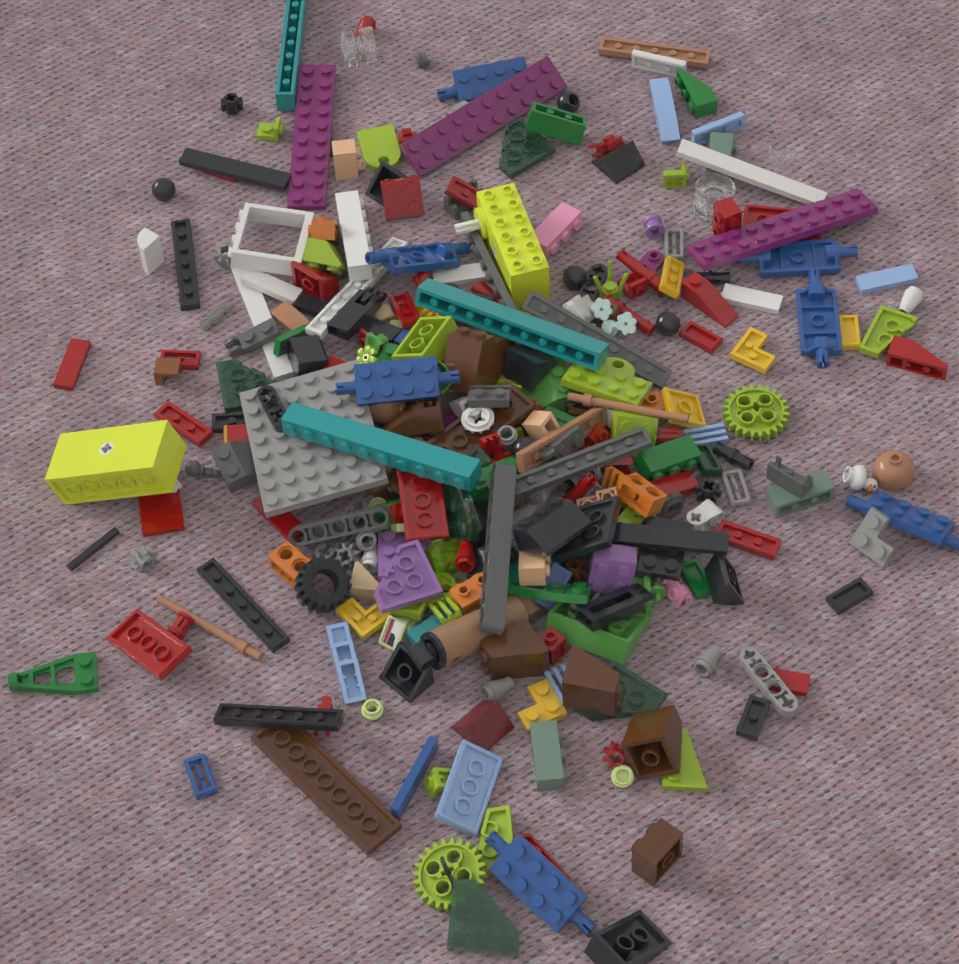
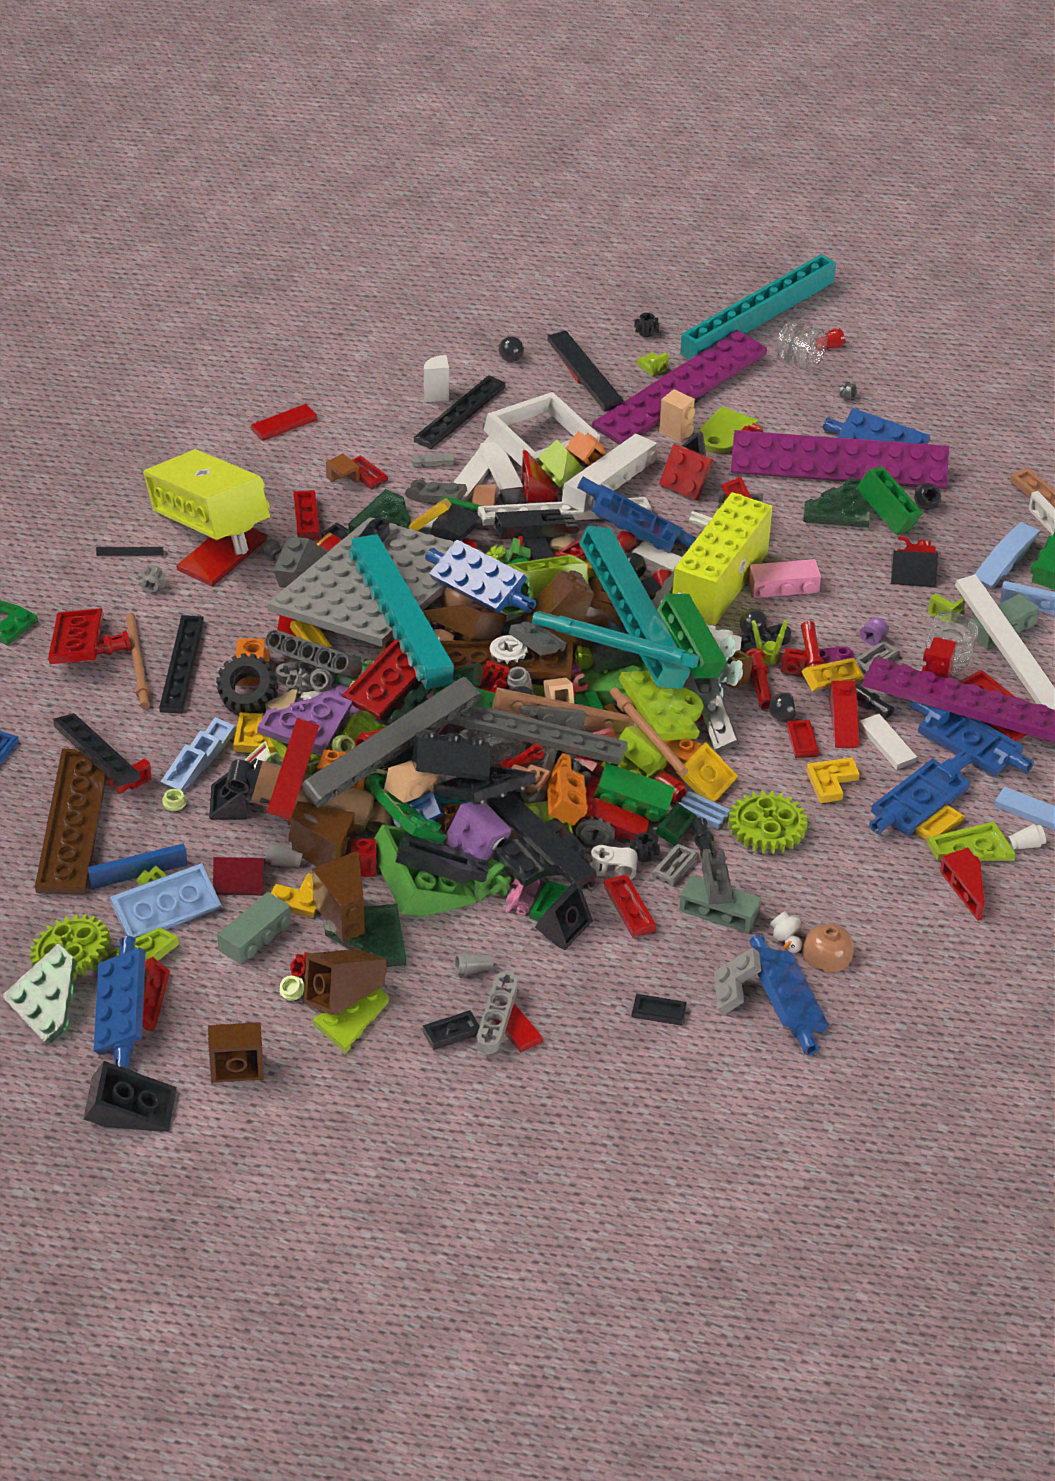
camera: 40 degrees right, 10 degrees down
(281, 359) = (430, 515): none -> yellow tile
(308, 514) = (309, 633): none -> yellow tile
(447, 577) = (348, 743): none -> yellowish green plate
(459, 620) = (293, 769): none -> red tile
(545, 357) = (616, 639): none -> teal piece
(578, 316) = (692, 634): none -> green brick

